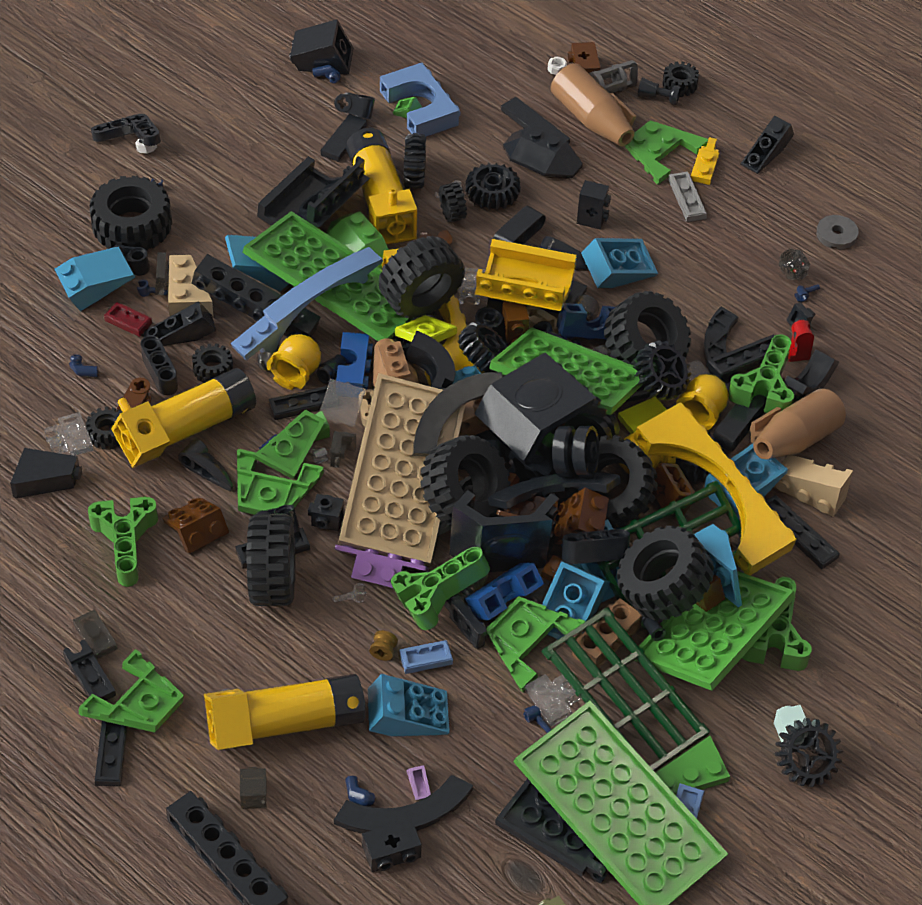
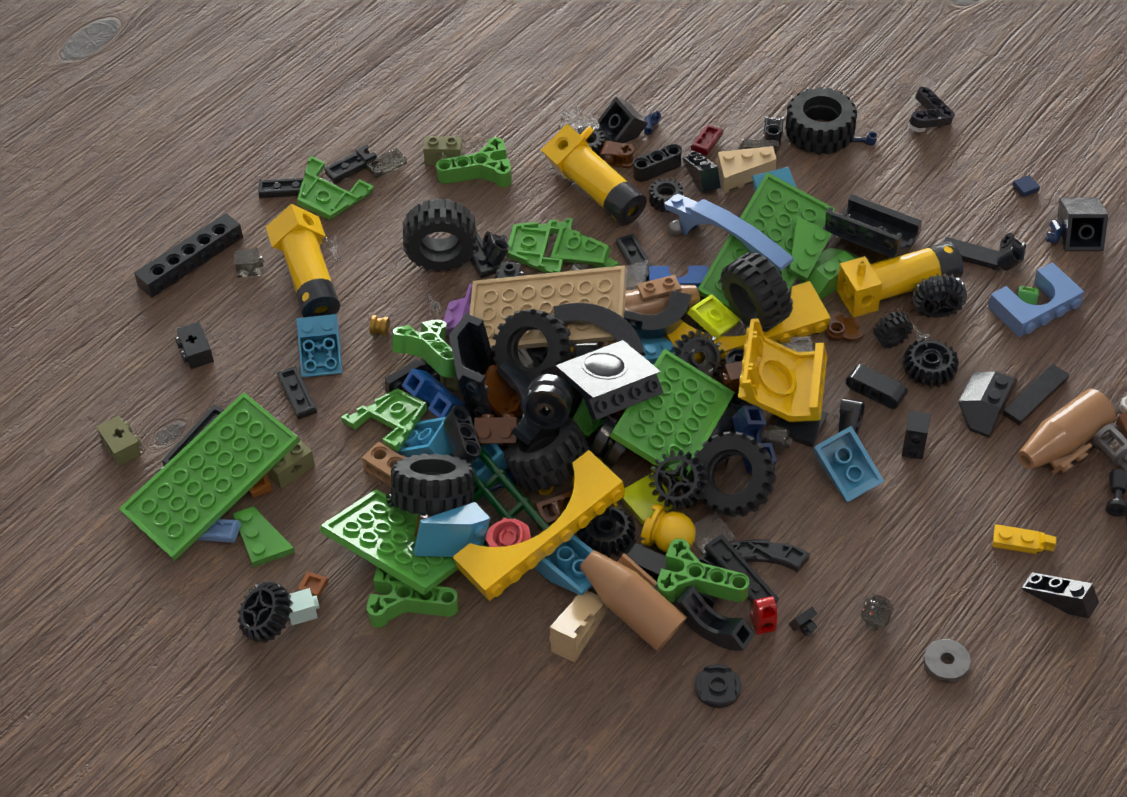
camera: 90 degrees right, 0 degrees up
(44, 473) = (536, 113): black slope -> none
(82, 391) = (621, 122): none -> black slope
(91, 570) = (440, 148): none -> olive brick
(94, 276) = (742, 106): dark azure slope -> none
(197, 523) = (492, 202): reddish brown bracket -> none
(198, 460) = (557, 202): black piece -> none
(246, 294) = (743, 162): black brick -> none
(255, 82) = (1026, 186): none -> dark blue tile
(295, 361) = (673, 240): yellow tile -> none
(328, 369) = (674, 267): black cone -> none
(336, 238) = (807, 247): none -> bright green wing
(357, 794) = (244, 323): dark blue arm -> none
(419, 782) = (256, 360): lavender piece -> none
(423, 813) = (223, 358): black tile -> none
(426, 656) = (371, 354): medium blue plate -> none
(474, 737) = (297, 392): none -> black tile
(533, 713) = (317, 428): dark blue hand -> none
(552, 698) = (332, 438): clear plate -> none
(620, 667) = (322, 500): dark green door -> none
(656, 141) = (1037, 492): bright green wing -> none
(687, 196) = (965, 524): light grey tile -> none
(720, 516) = (507, 533): none -> coral hat
(761, 716) = (315, 582): none -> dark orange plate
(803, 293) = (845, 624): dark blue hand -> none
(806, 537) = (526, 619): black tile -> none
(870, 391) = (717, 686): none -> black tile

